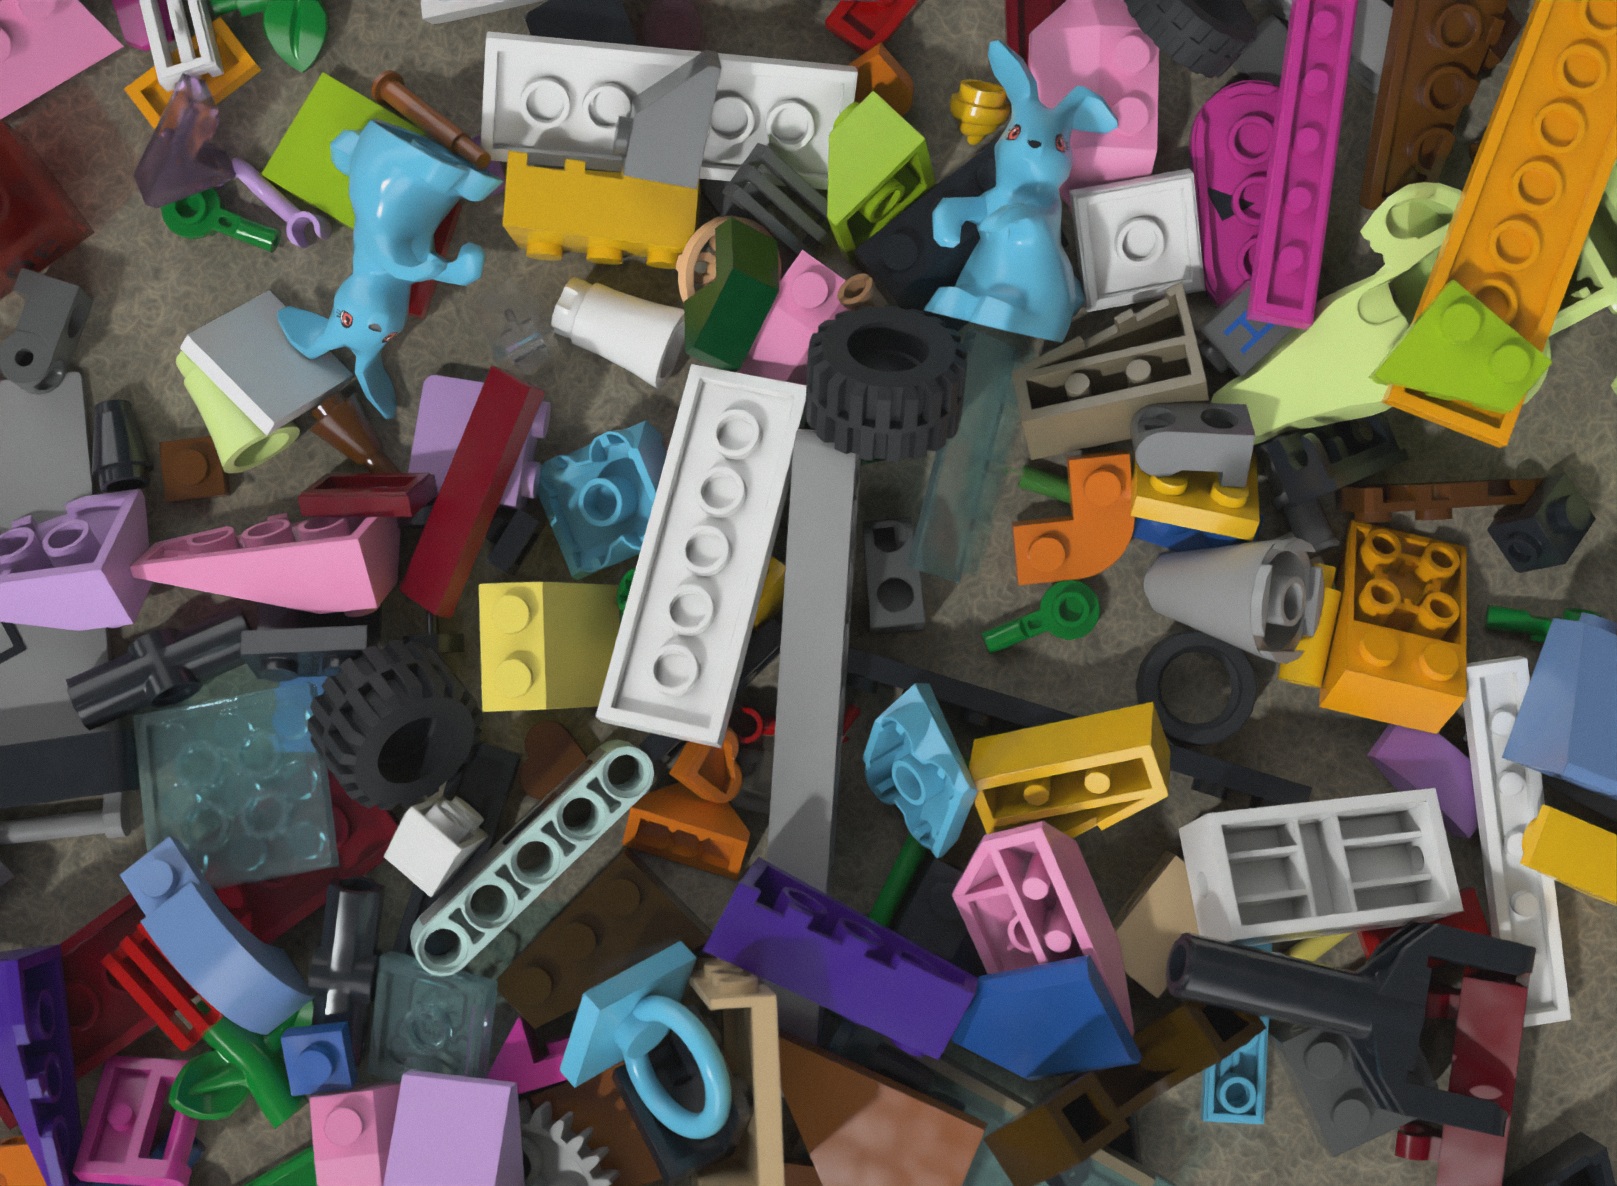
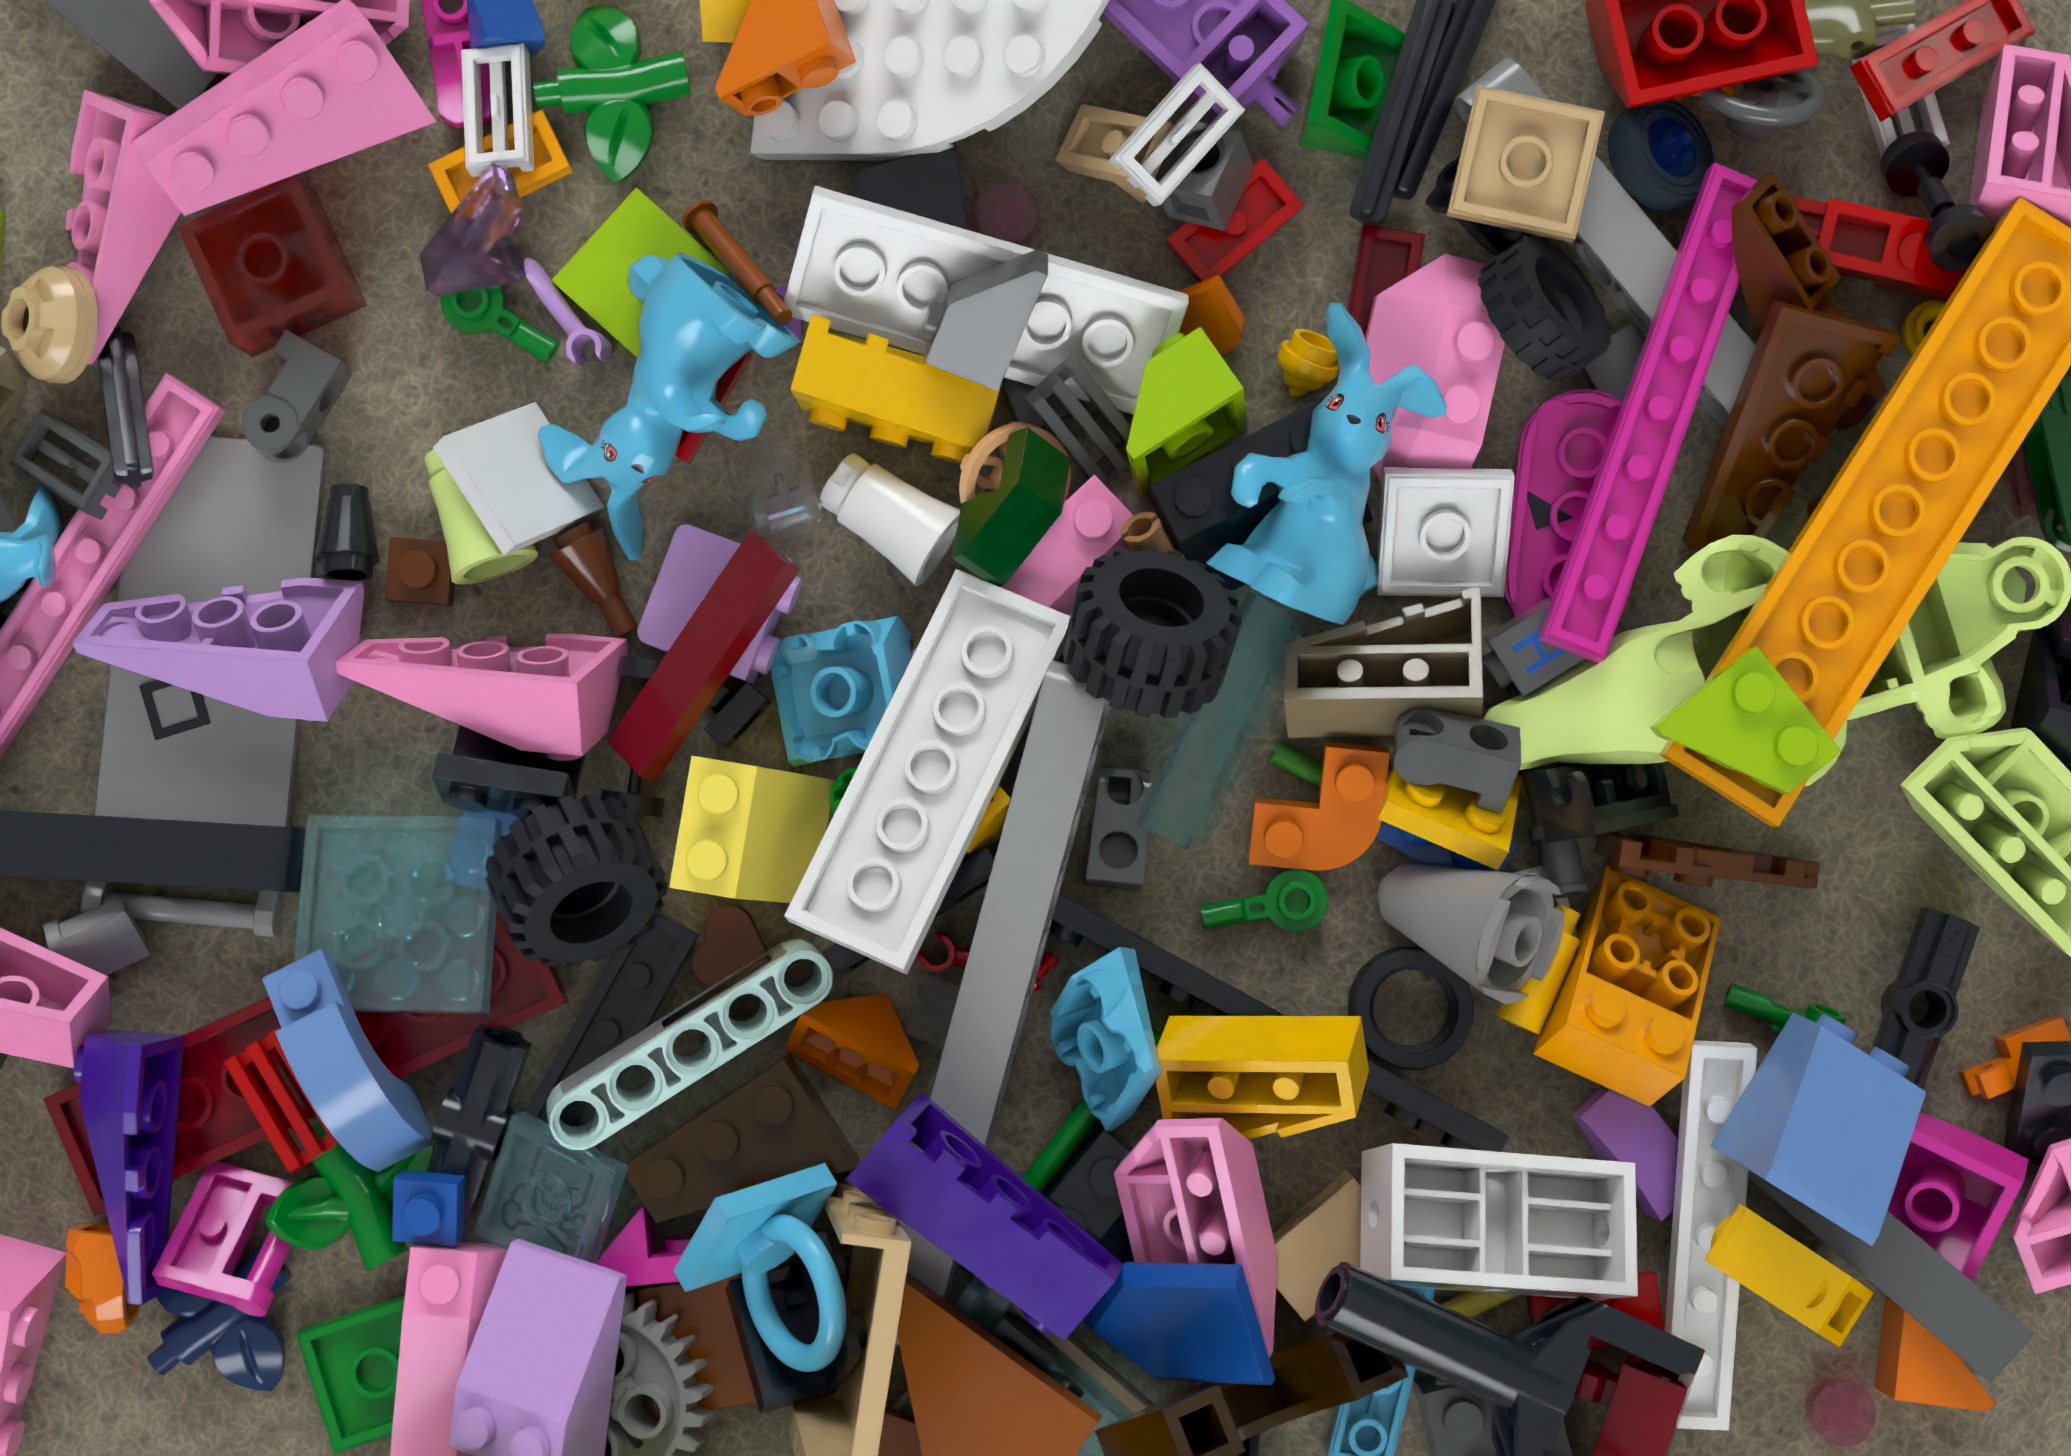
camera: 10 degrees right, 0 degrees up
(159, 669) = (345, 772): black piece -> none
(368, 495) = (595, 636): dark red tile -> none
(436, 842) = (594, 1010): white slope -> none
(710, 770) = (890, 993): orange tile -> none
(1545, 528) = (1806, 915): black bracket -> none

